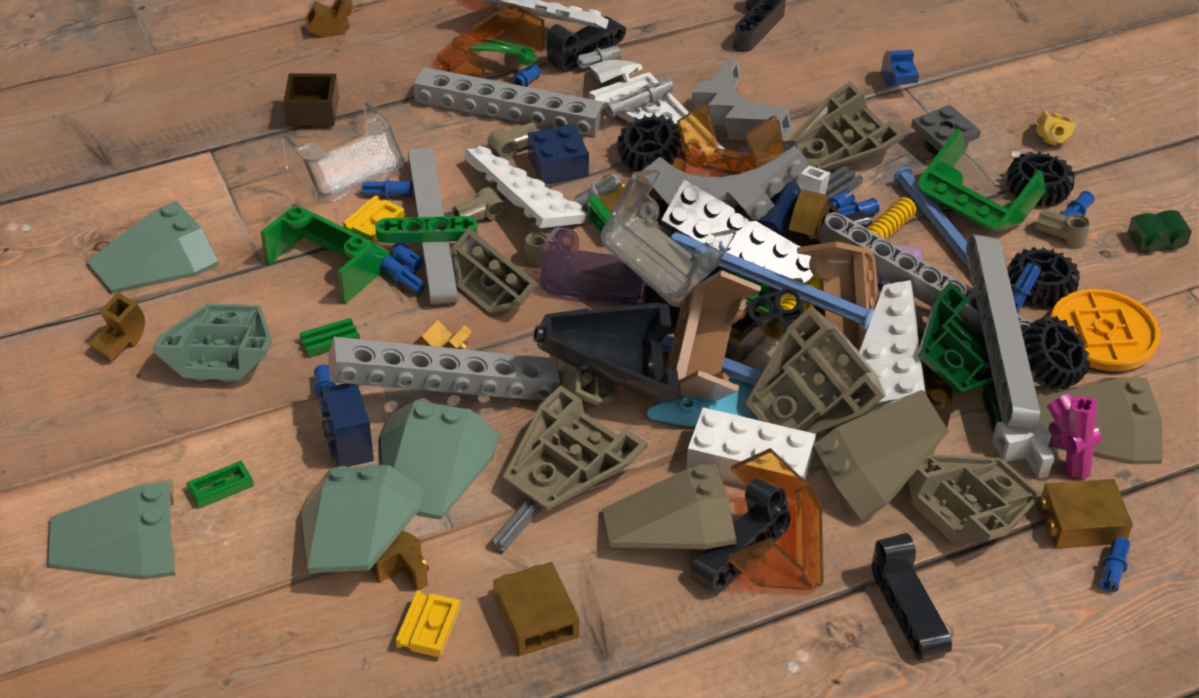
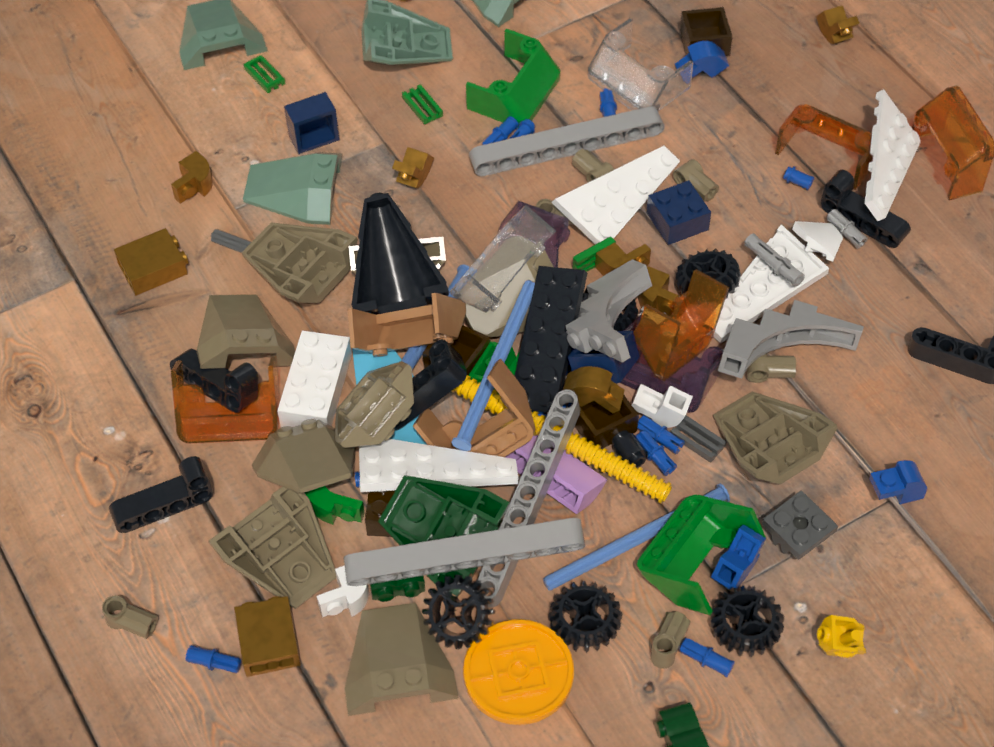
camera: 85 degrees right, 10 degrees up
(322, 379) = (369, 108): blue pin -> none
(349, 112) = (705, 57): none -> blue brick
(356, 516) = (216, 144): sand green wedge -> none
(365, 218) = (564, 104): yellow plate -> none
(426, 227) = (540, 131): green beam -> none
(428, 624) = (137, 205): yellow plate -> none
(441, 369) = (345, 90): light grey brick -> none
(489, 275) = (505, 187): dark tan wedge -> none
(507, 101) = (750, 168): light grey brick -> none
(523, 54) = (818, 154): green plant -> none
(604, 186) = (625, 242): light grey axle -> none
(979, 175) = (739, 559): none -> blue brick
(1024, 284) = (549, 588): blue axle -> none
(1071, 638) = (130, 618): none -> dark tan piece
(1075, 431) = (340, 611): dark pink piece -> none

